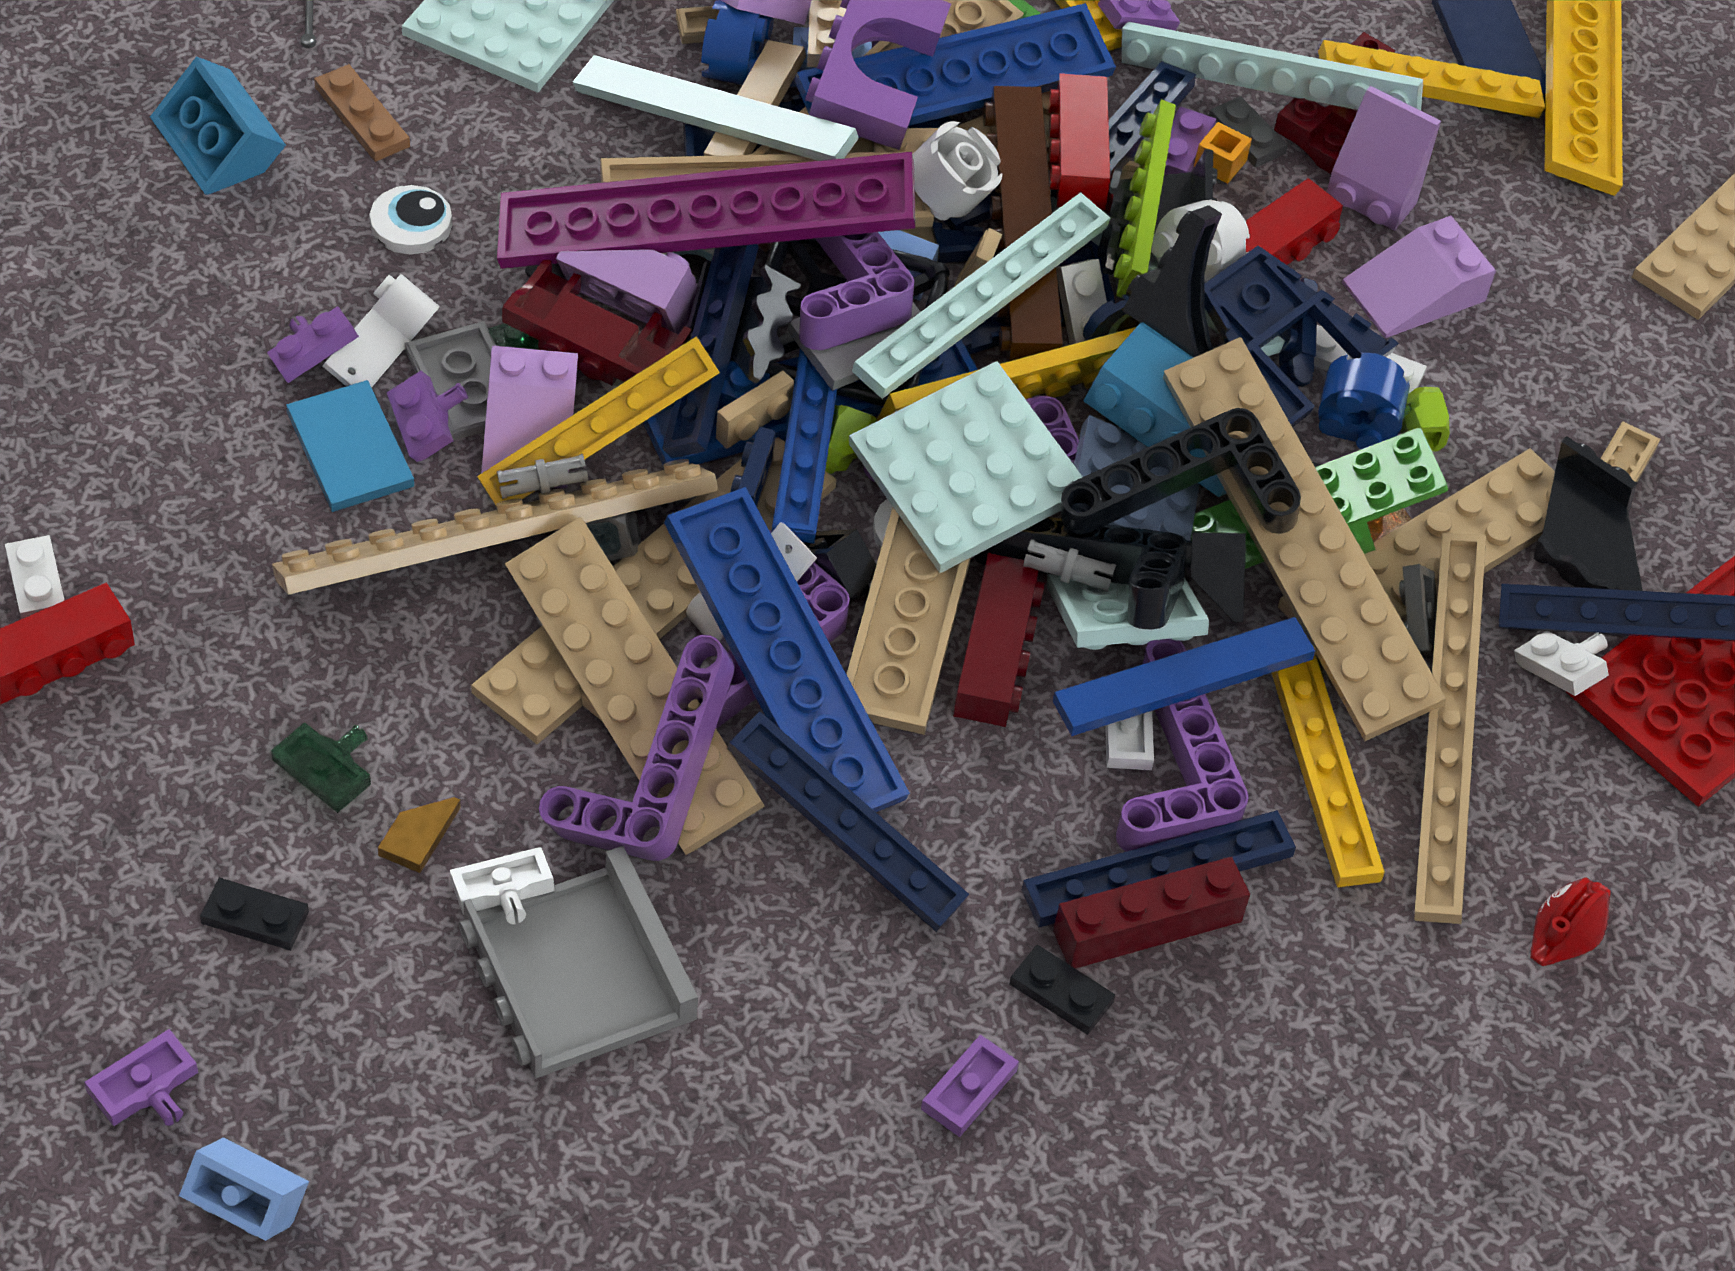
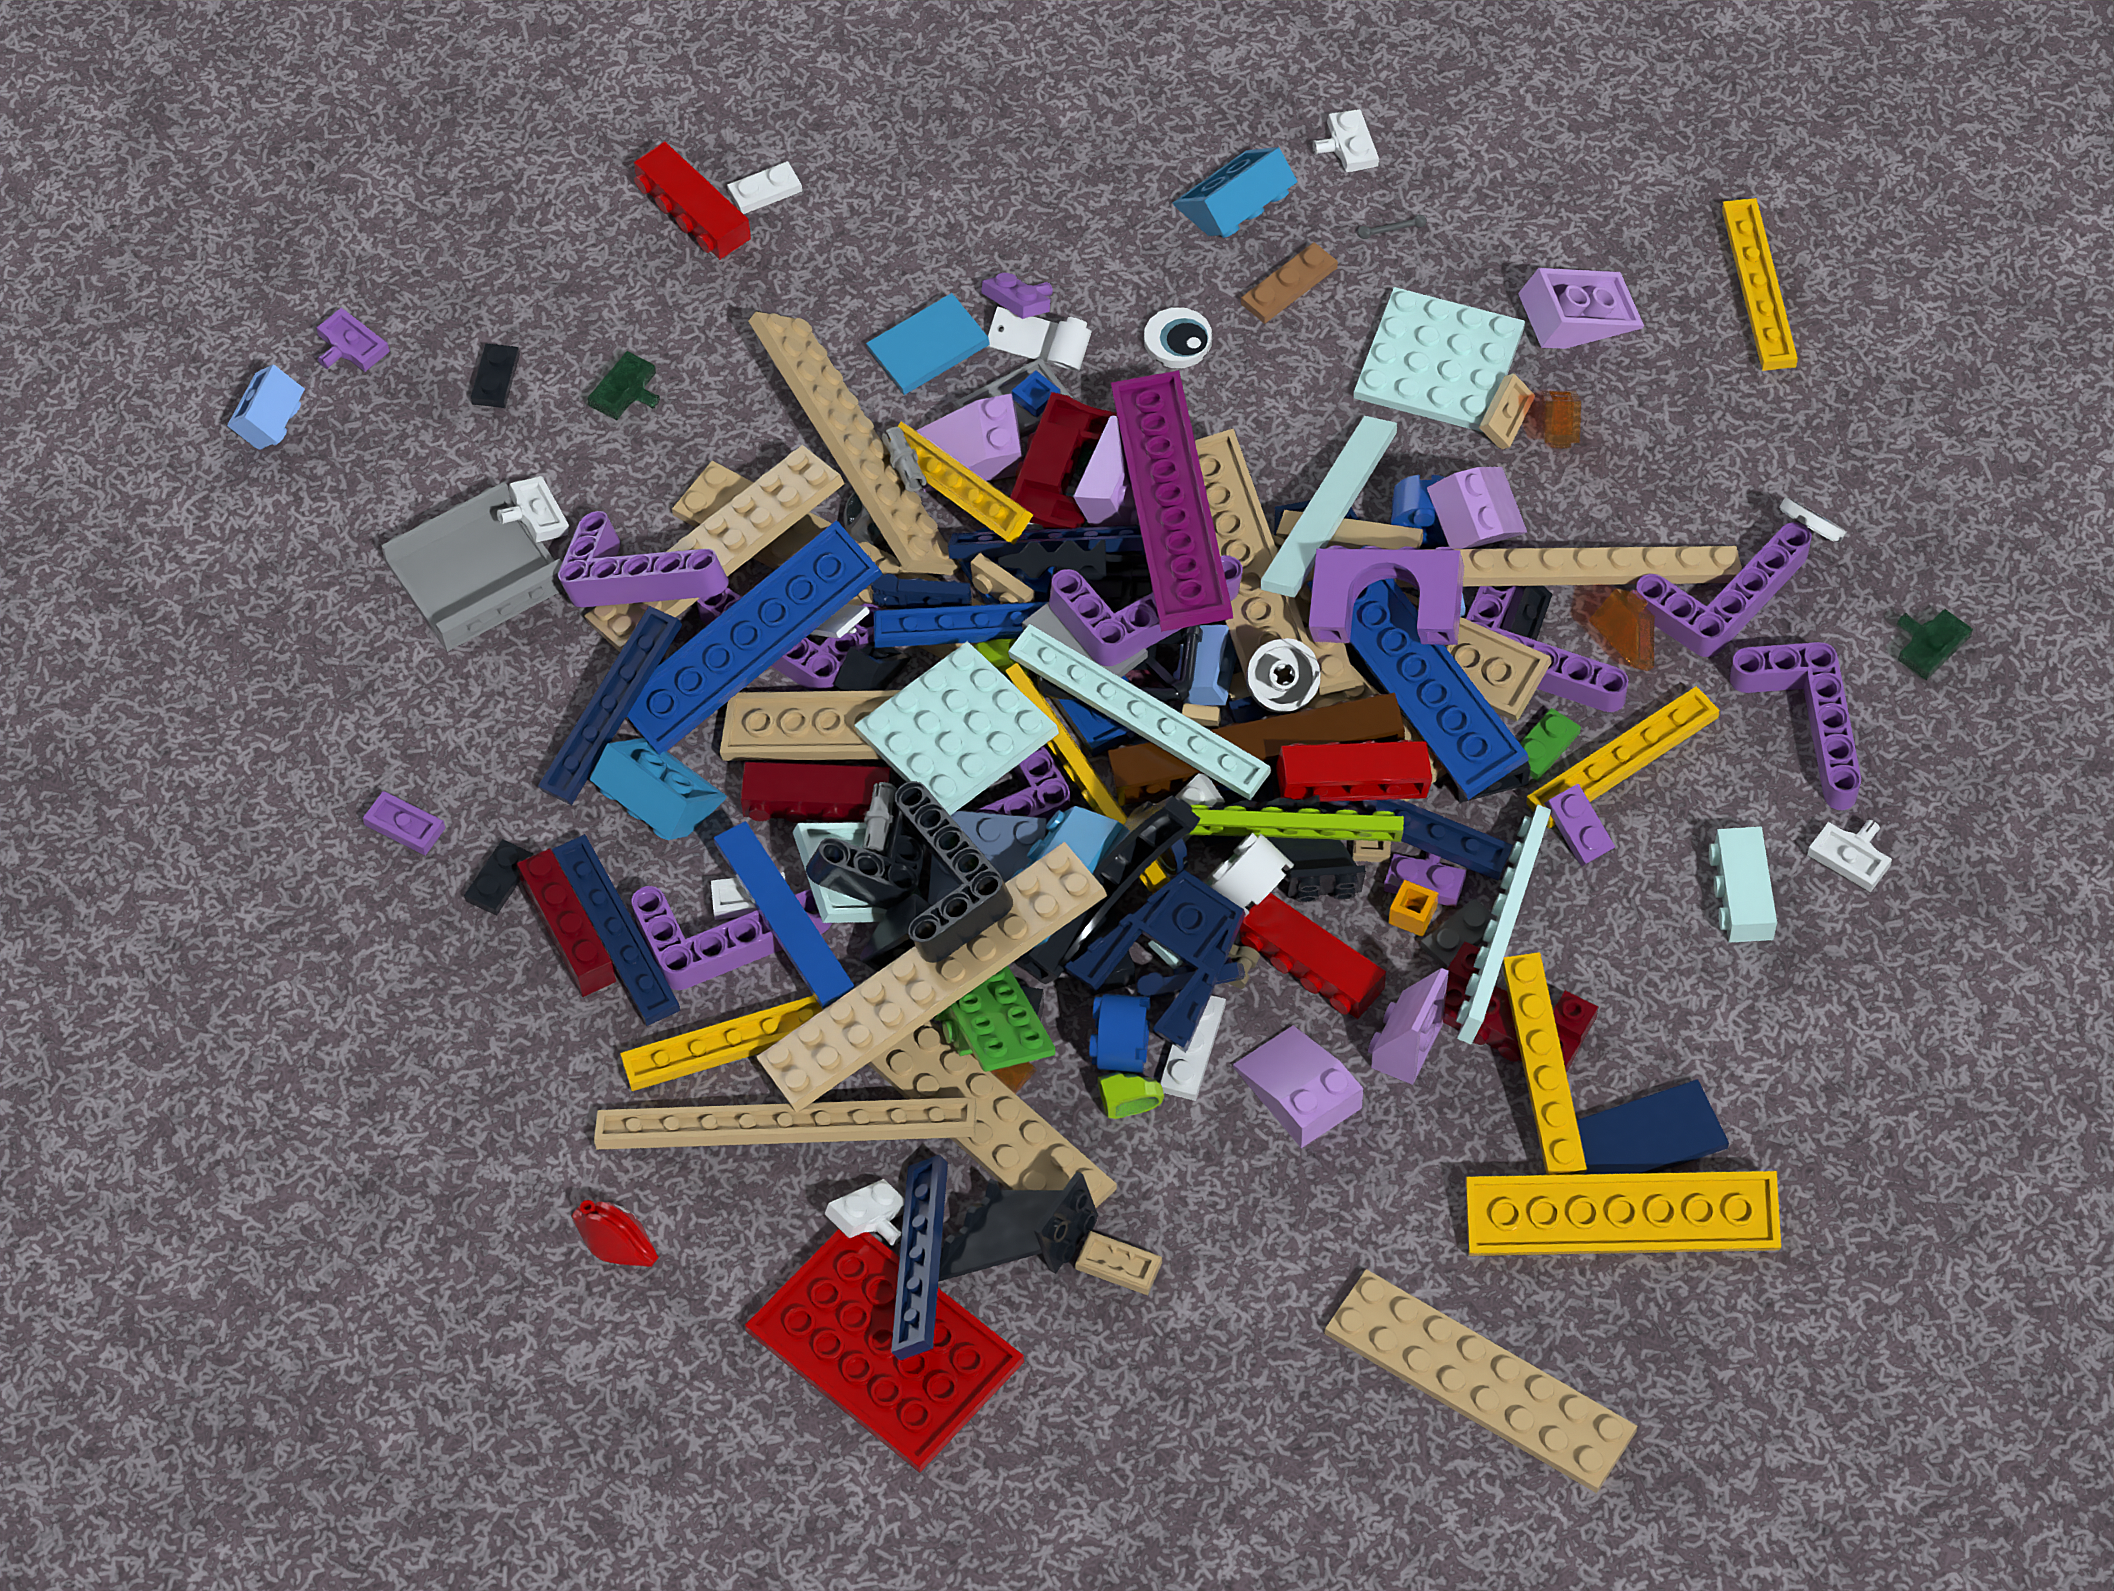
camera: 90 degrees right, 5 degrees up
(173, 26) = (1349, 141): none -> white plate
(418, 833) = (577, 455): pearl gold tile -> none
(424, 414) = (965, 380): medium lavender plate -> none
(470, 344) = (1034, 393): none -> blue plate
(967, 798) = (655, 787): none -> dark azure slope
(1420, 598) = (902, 1084): dark grey plate -> none

